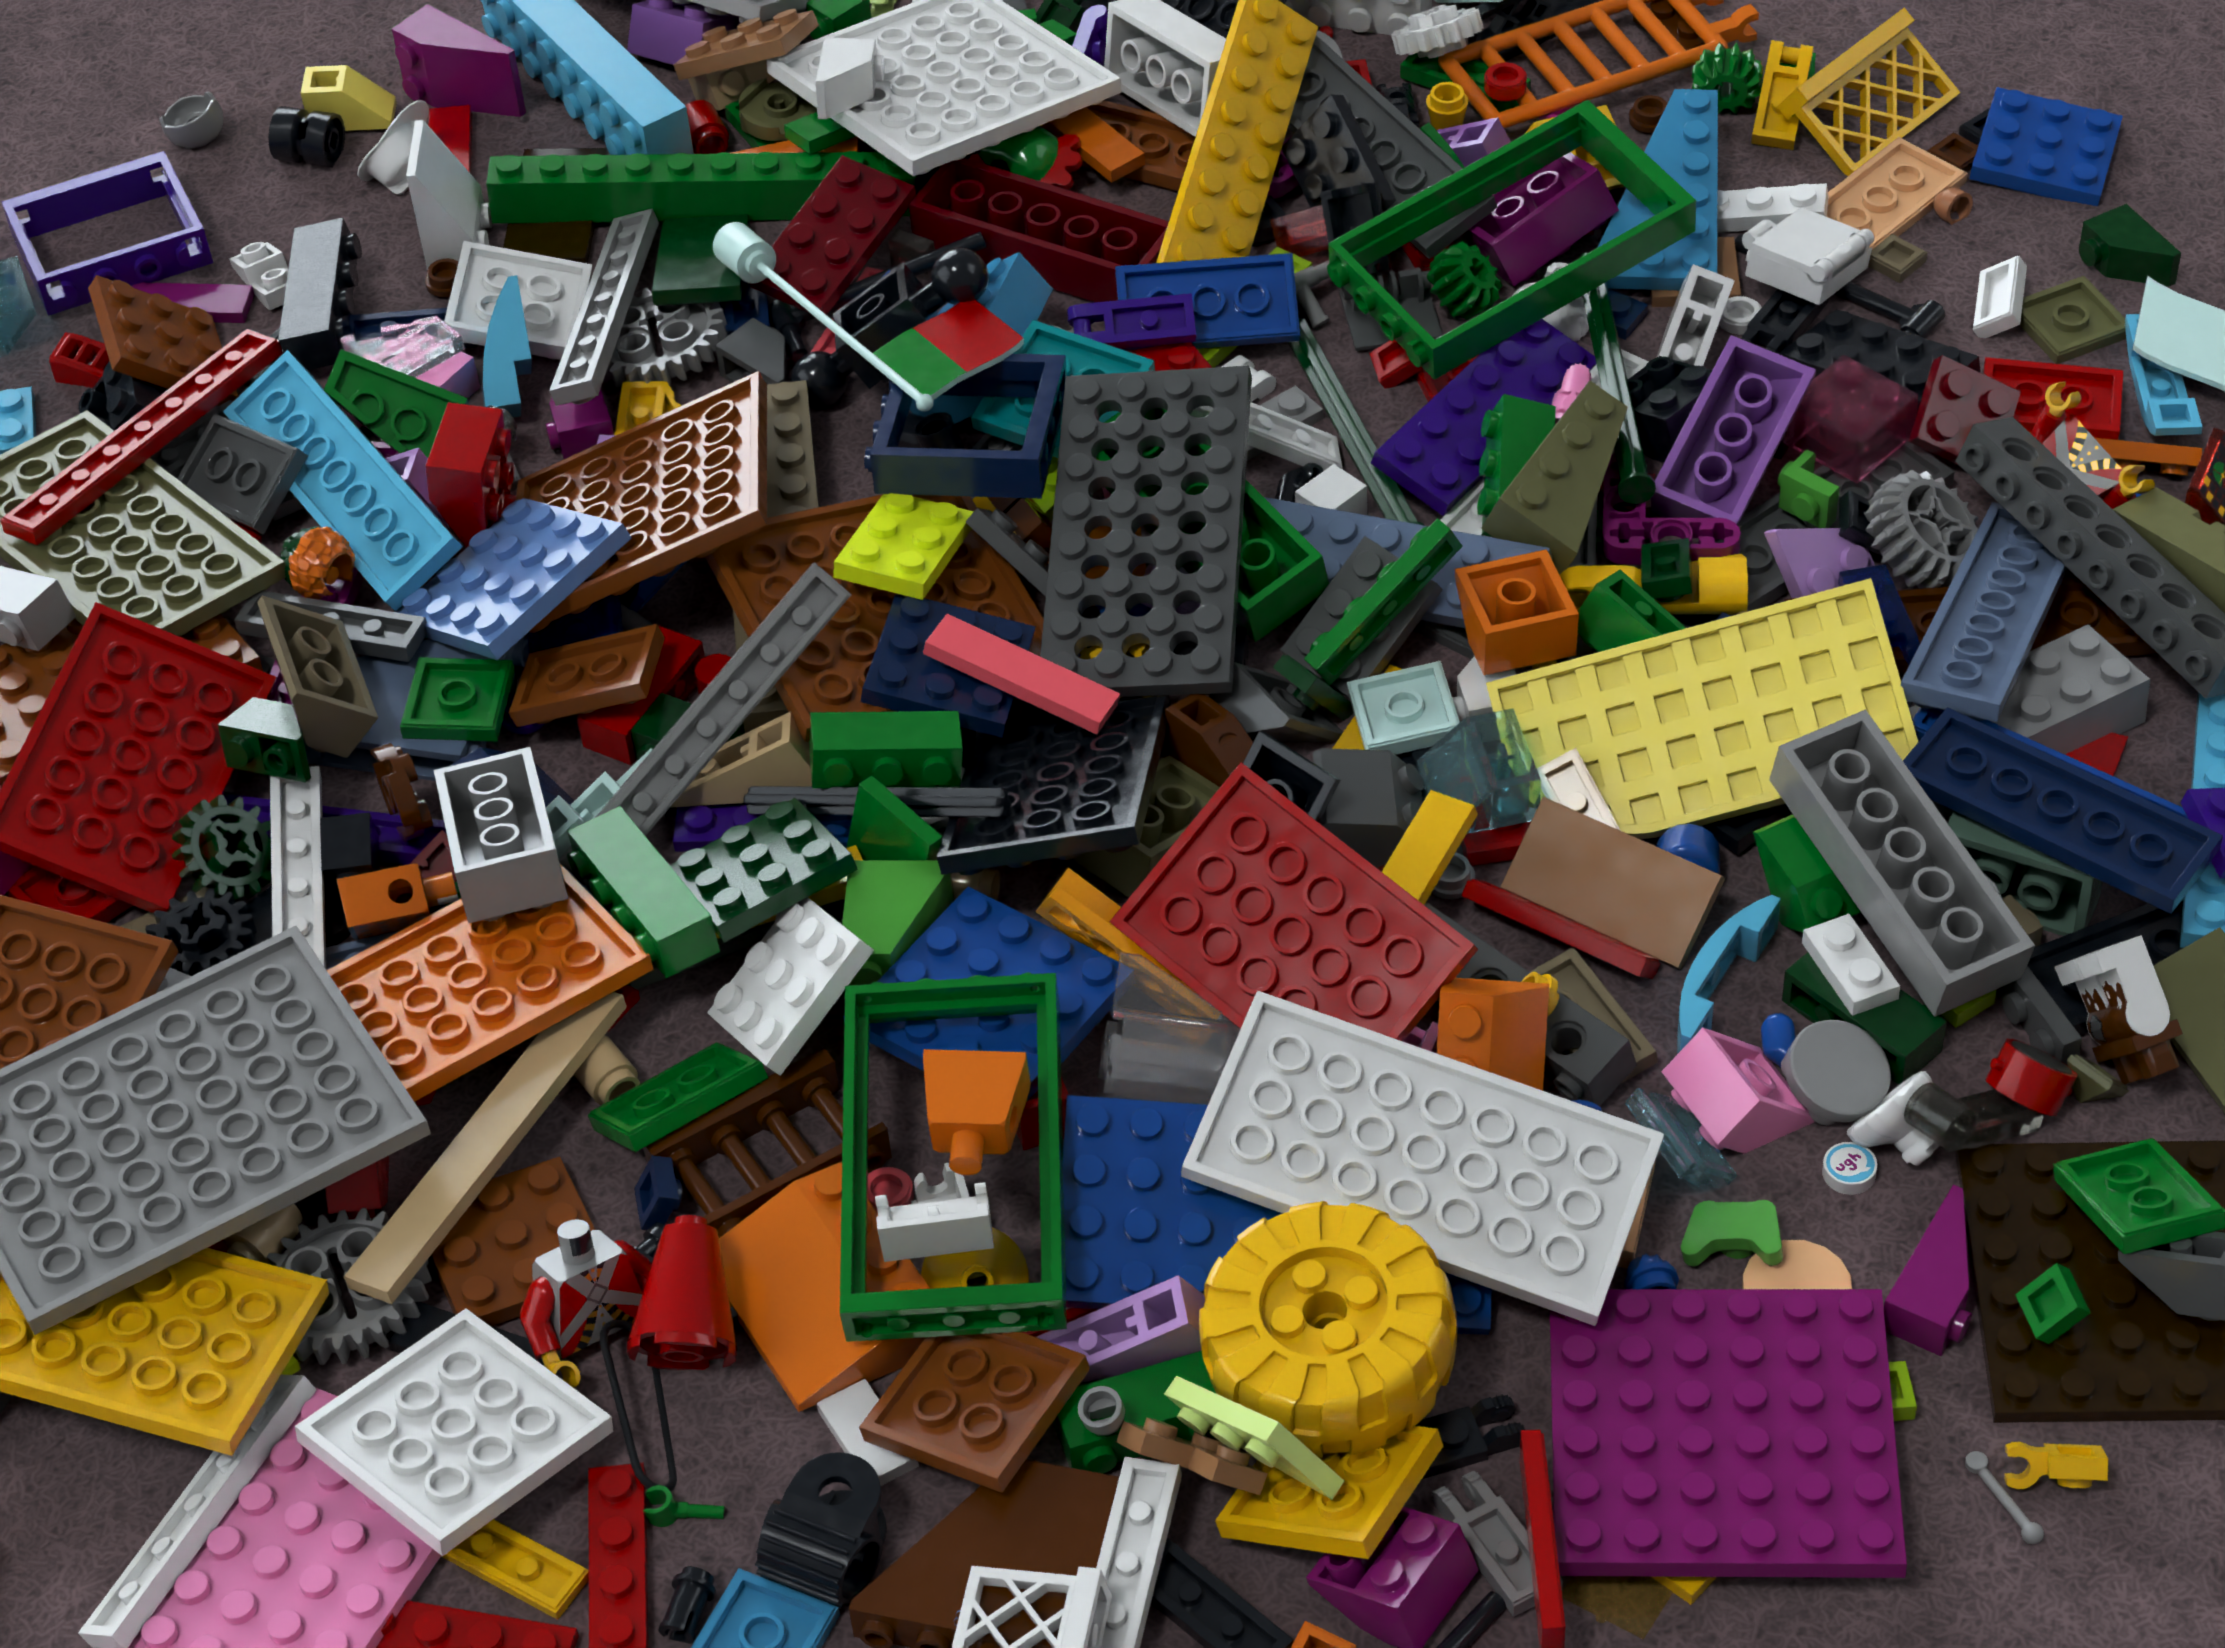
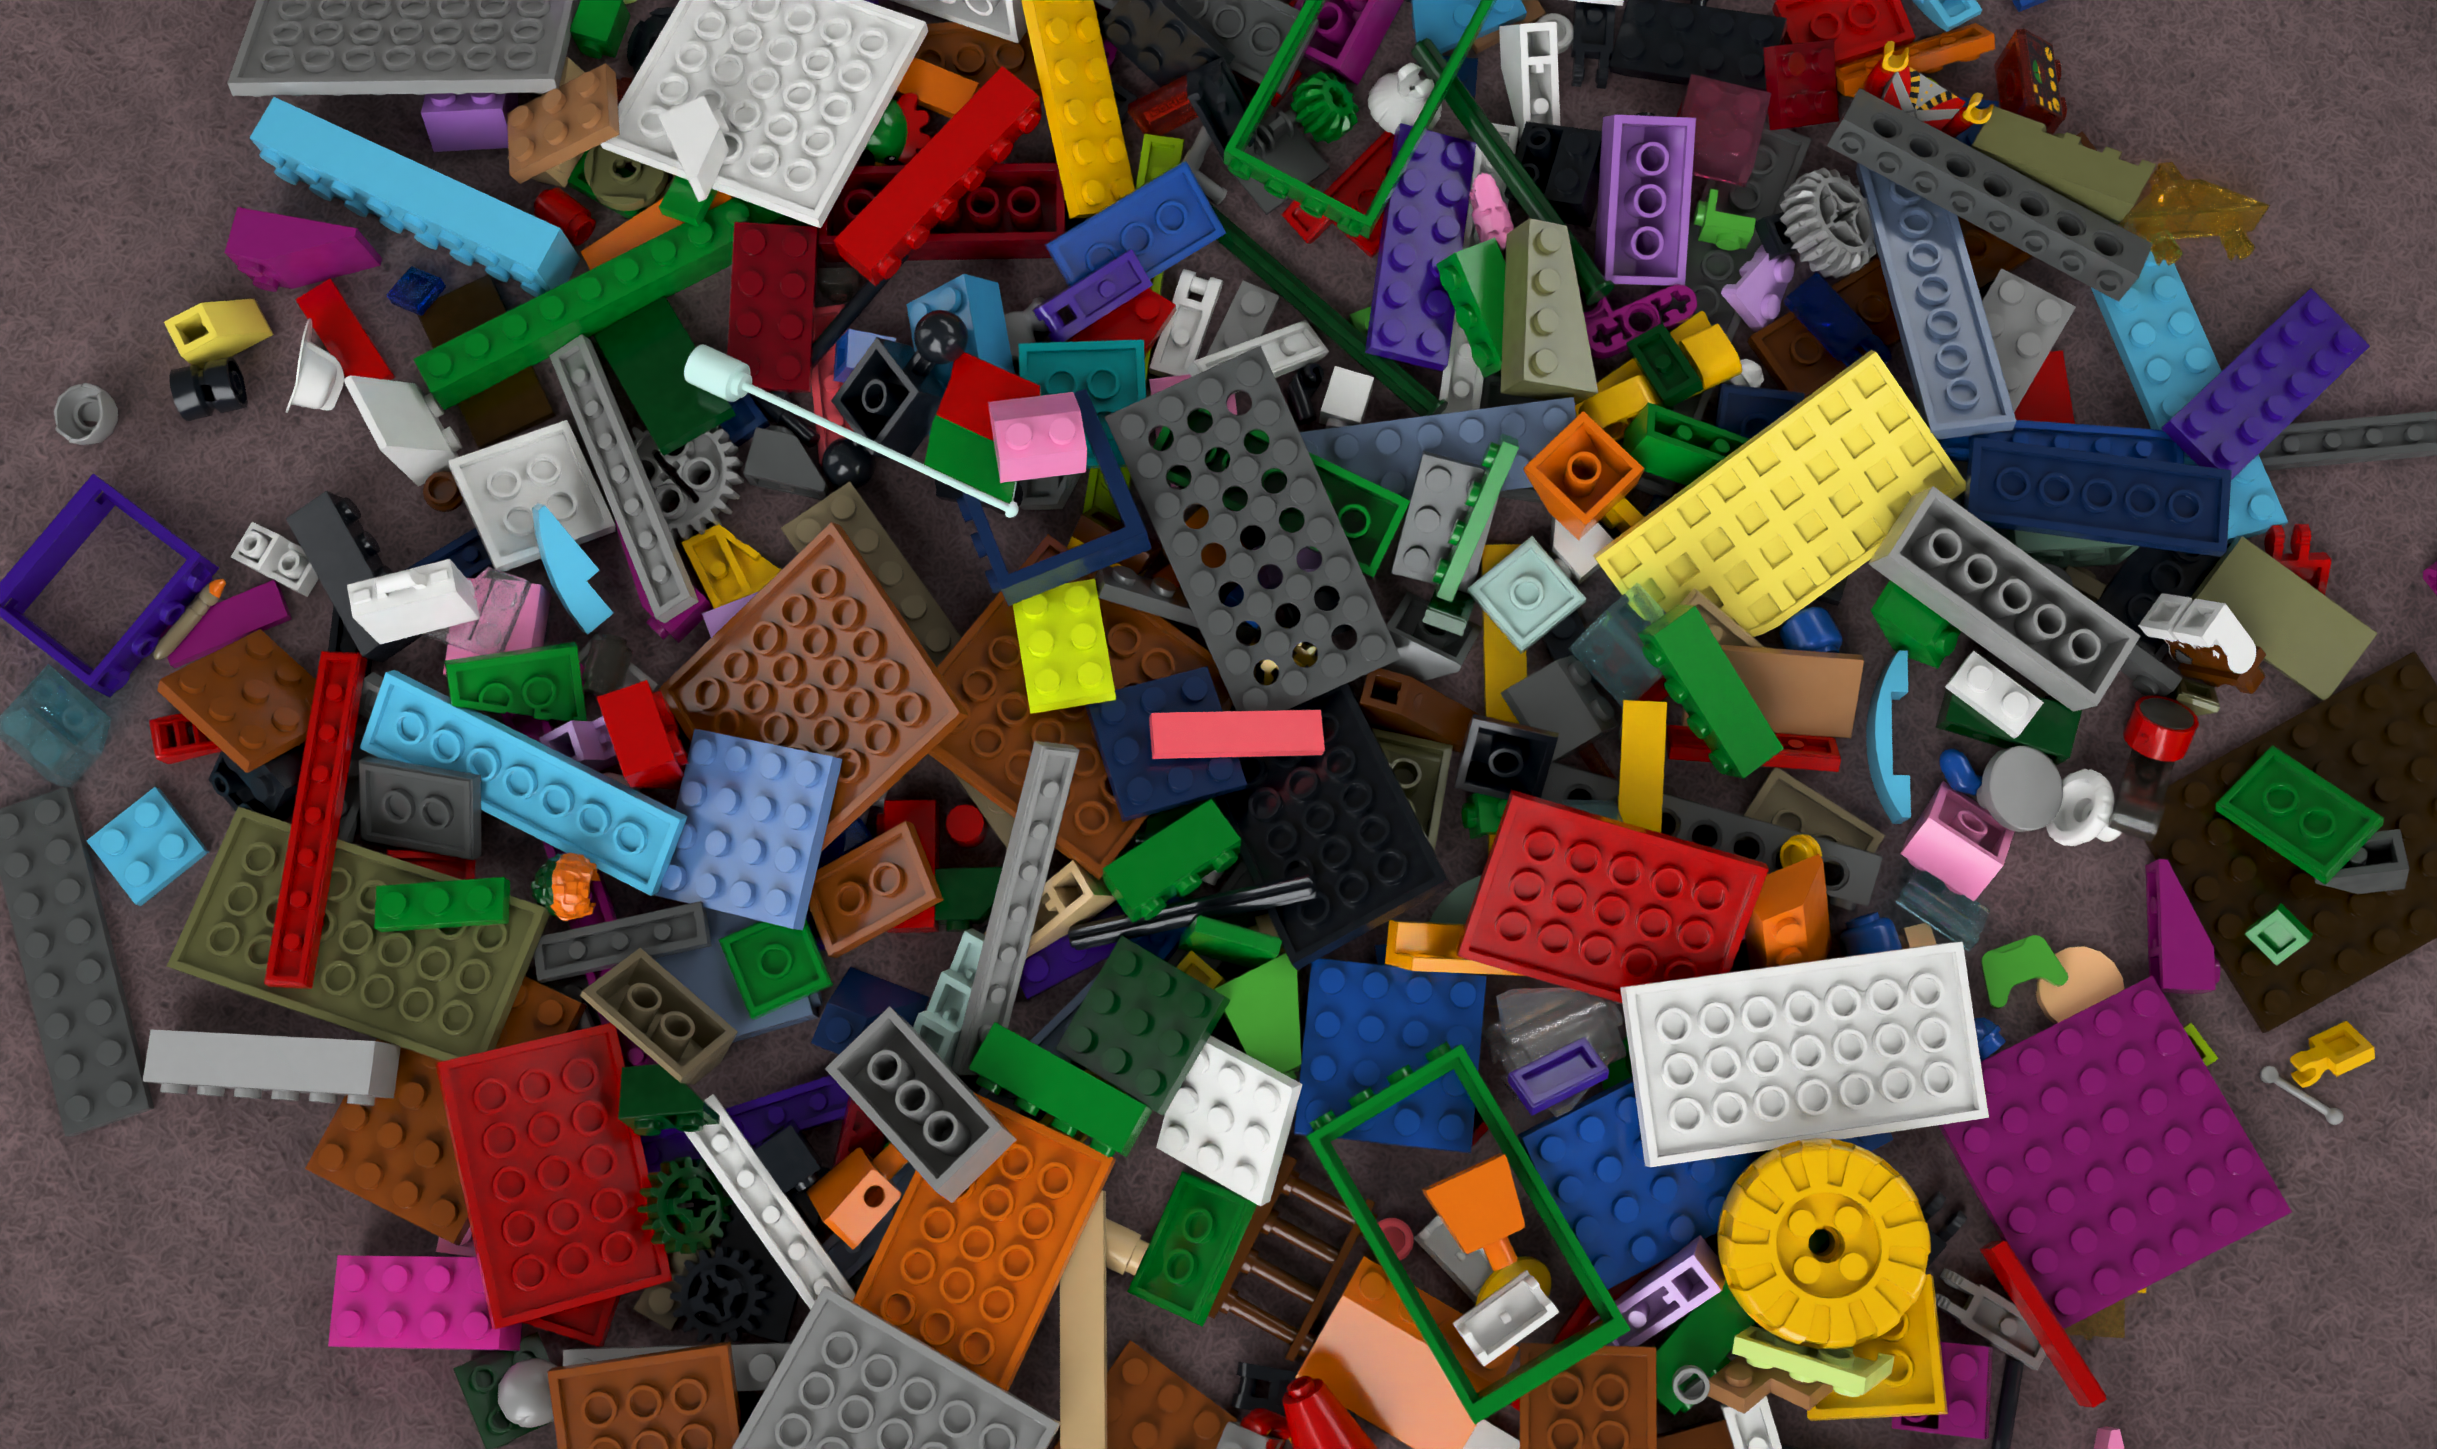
camera: 30 degrees left, 30 degrees up
(186, 272) = (189, 619): none -> dark tan piece
(197, 524) = (442, 904): none -> green plate
(349, 292) = (413, 601): none -> white piece
(394, 775) = (800, 1088): reddish brown plate -> none
(535, 136) = (416, 290): none -> clear blue tile
(657, 1192) = (1229, 1338): dark blue plate -> none
(985, 358) = (1038, 437): none -> bright pink slope
(1050, 184) = (939, 176): none -> red brick
(1138, 1047) = (1558, 1076): none -> dark purple tile
(1526, 818) = (1709, 691): none -> green brick
(1849, 1168) = (2062, 863): white tile -> none

